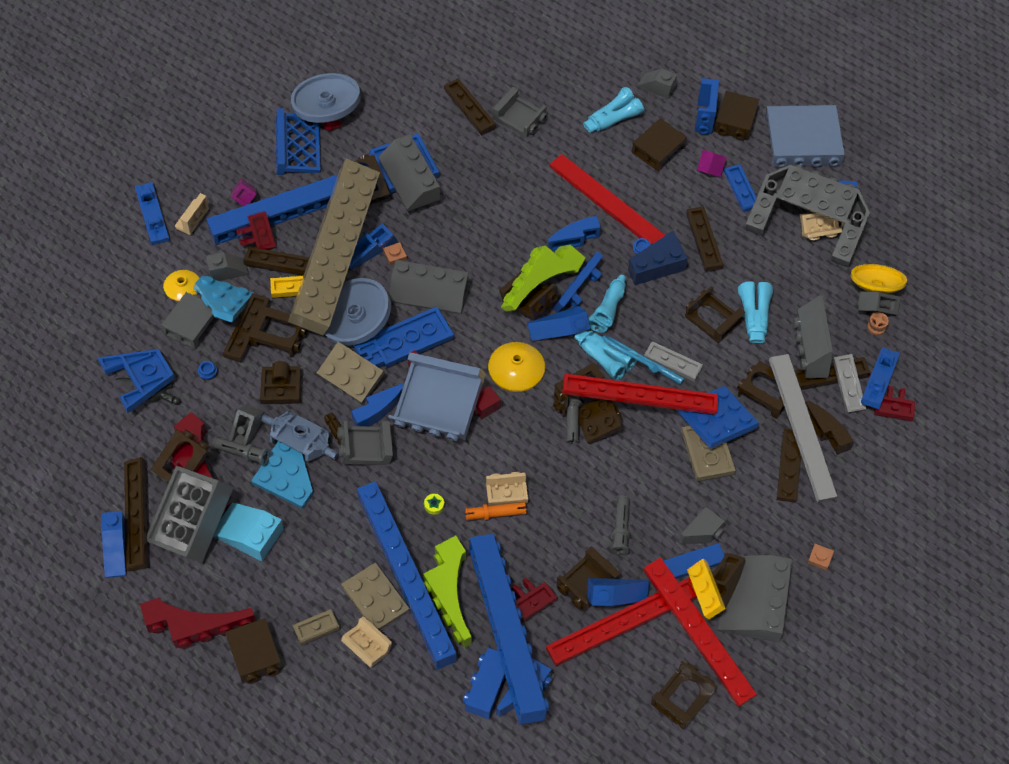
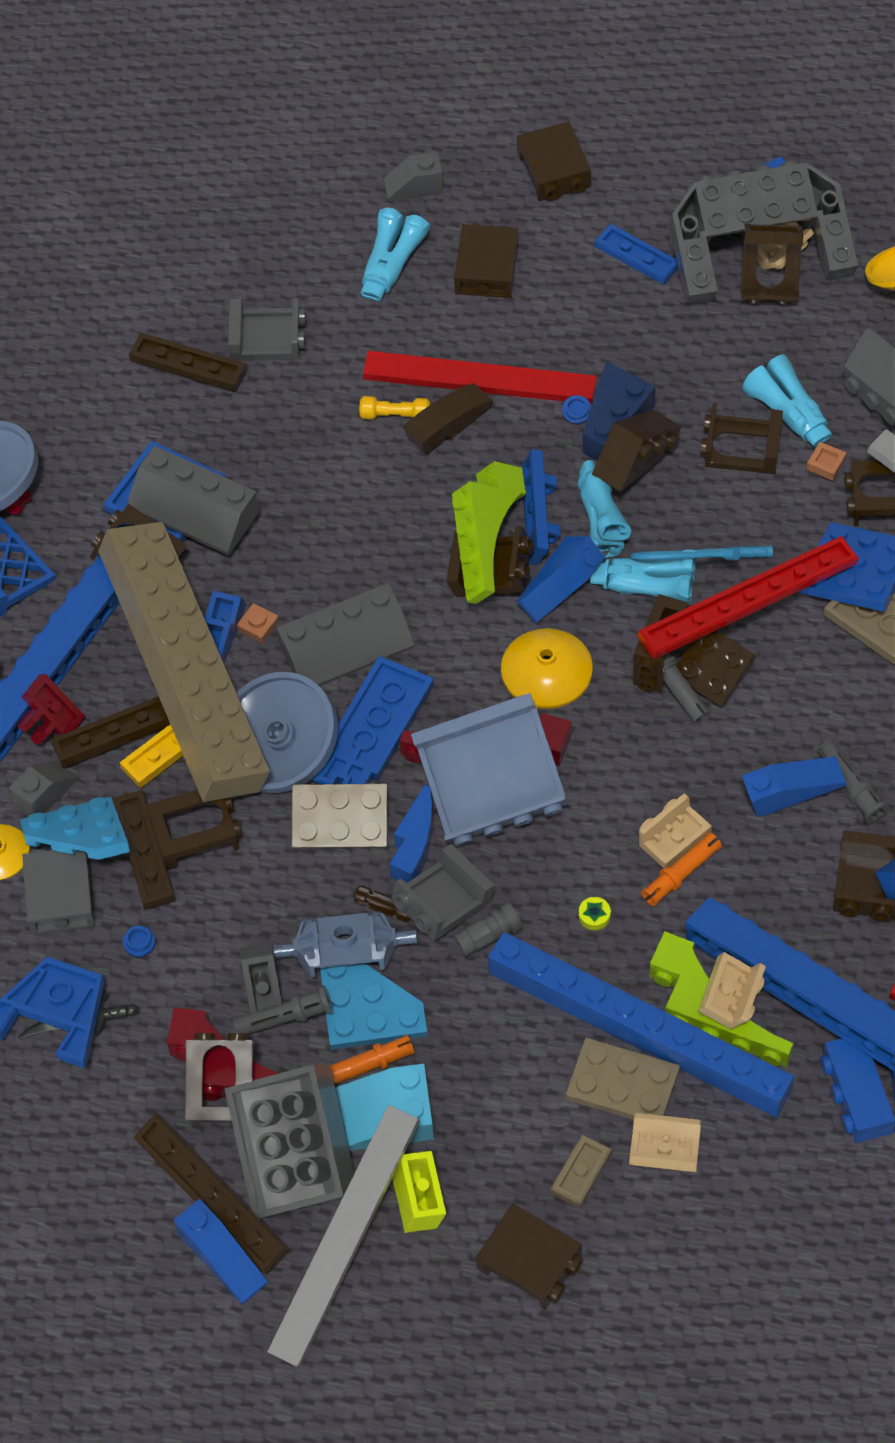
camera: 30 degrees left, 0 degrees up
(172, 576) = (343, 1236): none -> light grey tile
(189, 626) = (416, 1285): dark red arch -> none
(227, 580) = (418, 1192): none -> neon yellow brick
(267, 502) = (377, 1057): none -> orange pin
(280, 383) = (257, 893): dark brown plate -> none
(367, 475) = (487, 930): none -> dark grey axle
(459, 587) = (732, 991): none -> tan bracket
(534, 600) = (827, 941): dark red hinge -> none
(562, 198) = (371, 407): none -> yellow piece
(571, 209) = (447, 417): none -> dark brown slope
(575, 233) = (479, 445): blue slope -> none
(585, 504) = (792, 783): none -> blue slope
(651, 282) = (635, 447): none -> dark brown wedge
(673, 361) = (740, 532): light grey tile -> none
(704, 239) = (647, 349): dark brown plate -> none
(707, 97) = (505, 156): blue panel -> none
(711, 163) = (574, 244): magenta panel -> none
(749, 353) = (826, 461): none -> nougat plate
(786, 240) = (771, 234): none -> dark brown panel
(805, 135) = (663, 135): sand blue panel -> none

